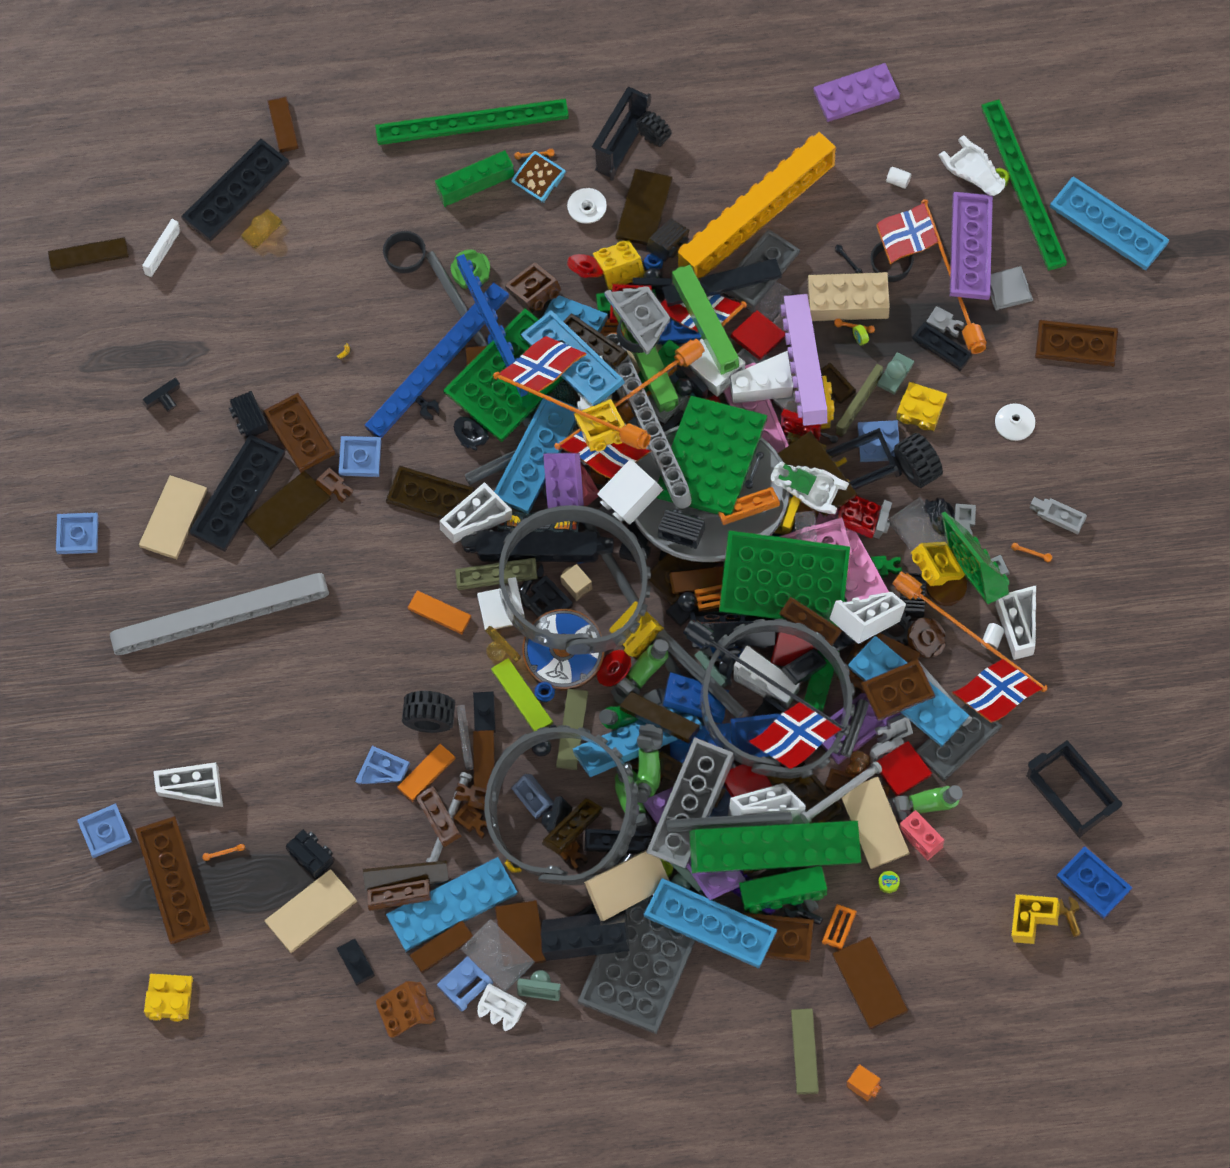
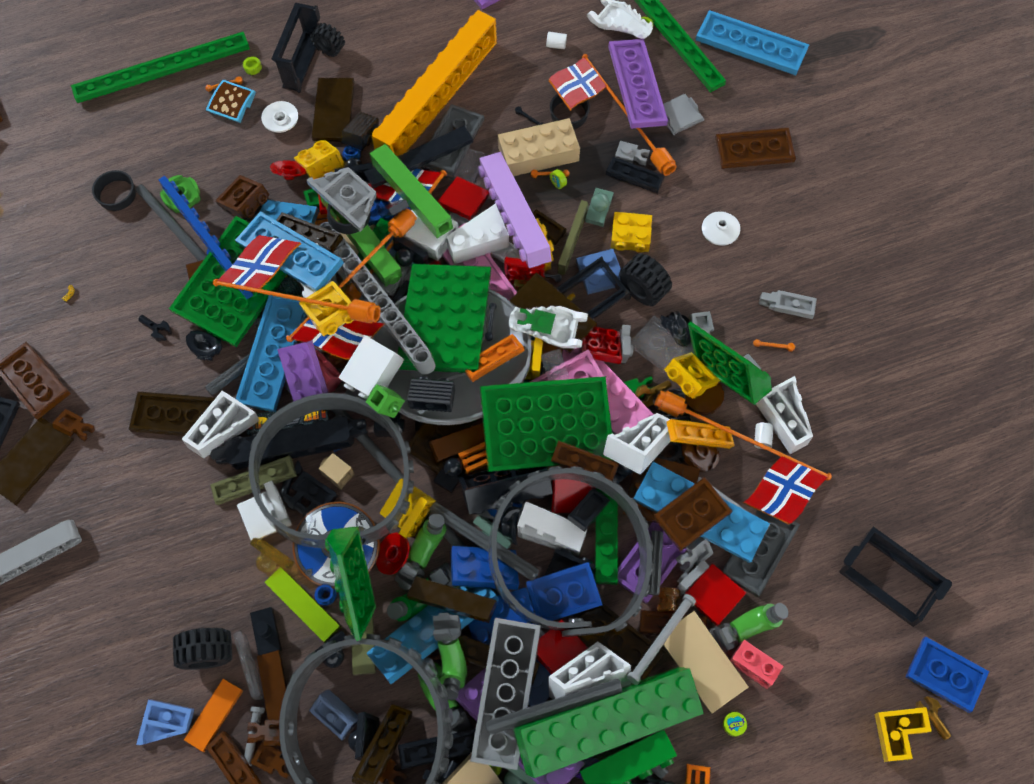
camera: 15 degrees left, 0 degrees up
(360, 456) = (96, 391): medium blue plate -> none
(433, 365) = (155, 289): blue plate -> none
(439, 612) = (201, 533): orange tile -> none
(474, 178) = (170, 113): green brick -> none
(567, 139) = (252, 65): none -> lime tile
(574, 676) = (352, 578): none -> green slope
(637, 525) = (385, 401): none -> bright green brick
(683, 334) = (393, 208): none -> black tile
(795, 731) = (601, 583): flag -> none
(895, 571) = (648, 401): none -> pearl gold bar
(927, 620) = (699, 434): none -> light orange tile

